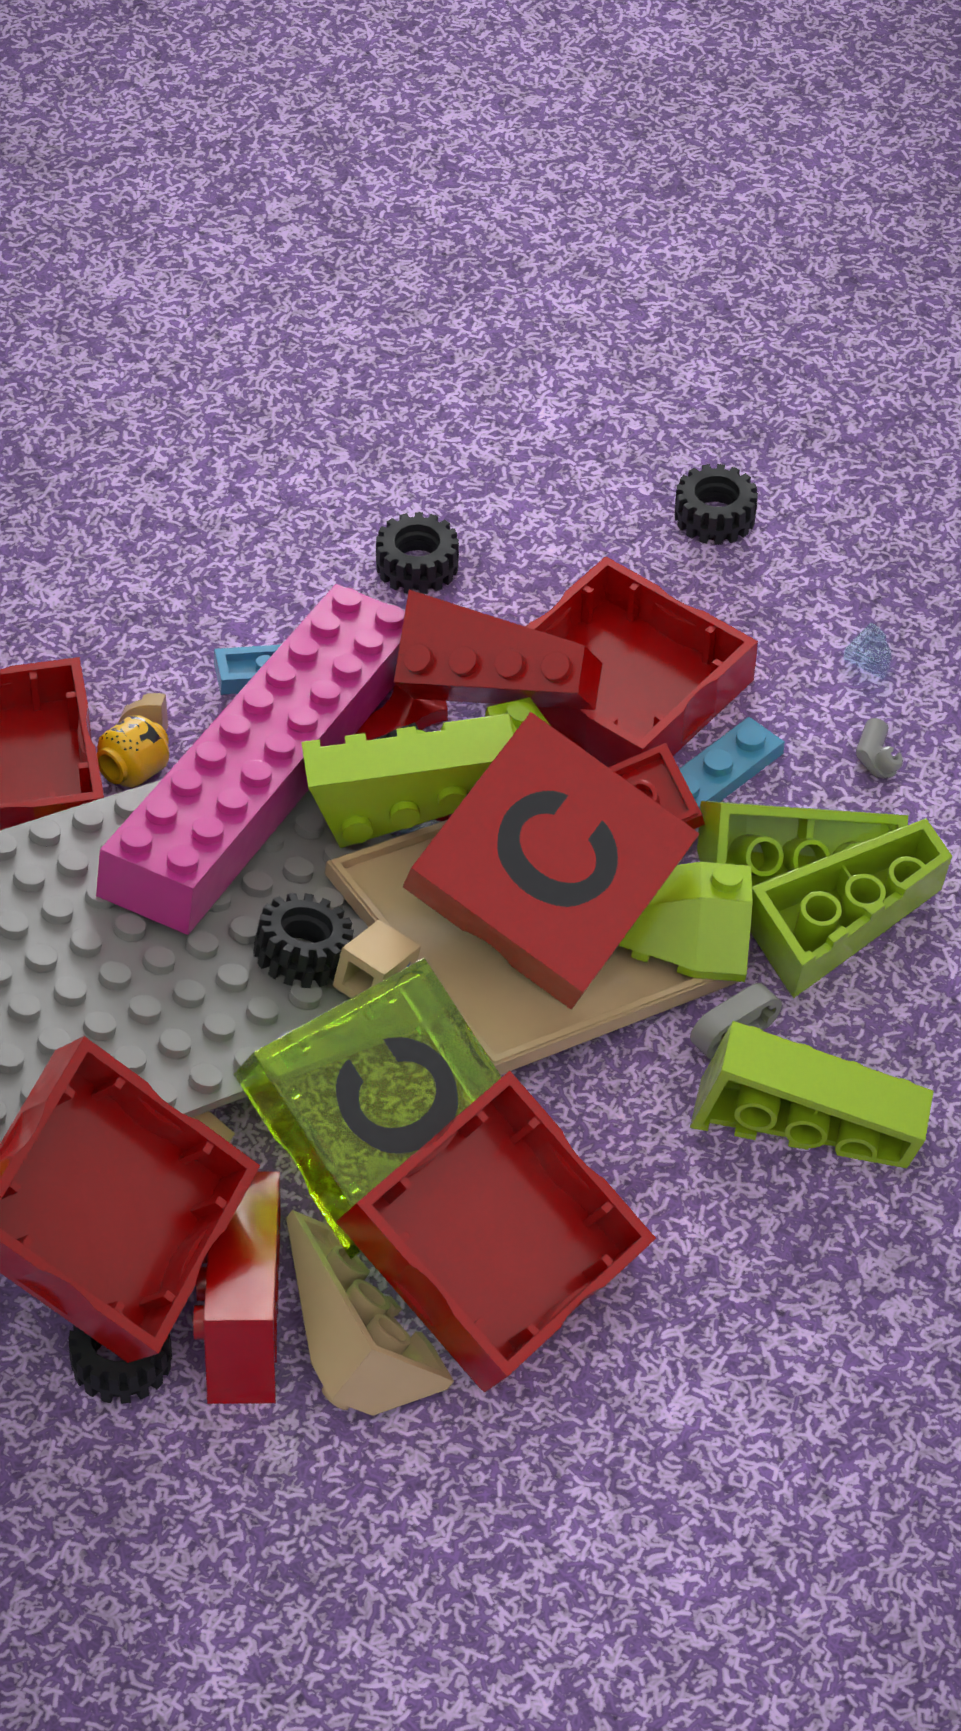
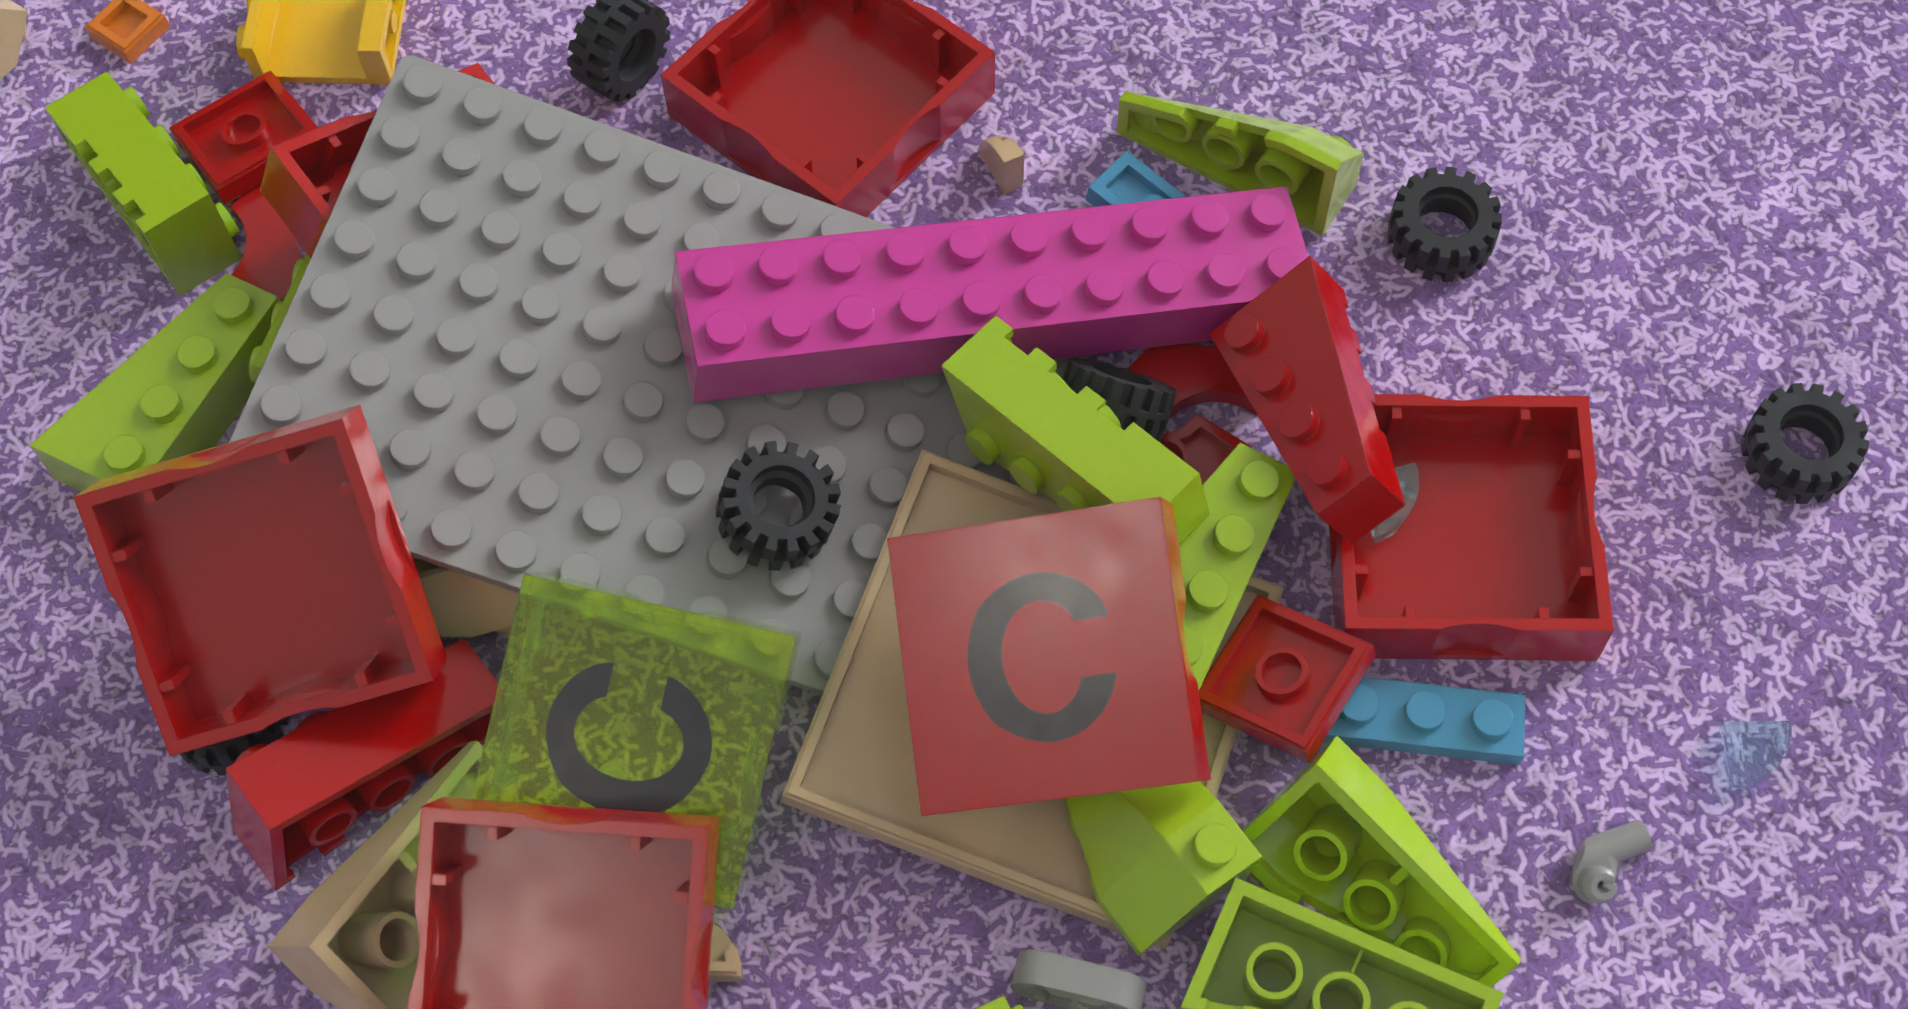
camera: 55 degrees right, 15 degrees up
(133, 751) = (940, 183): yellow head -> none
(268, 603) = (1248, 152): none -> lime wedge
(373, 958) = (809, 592): tan brick -> none

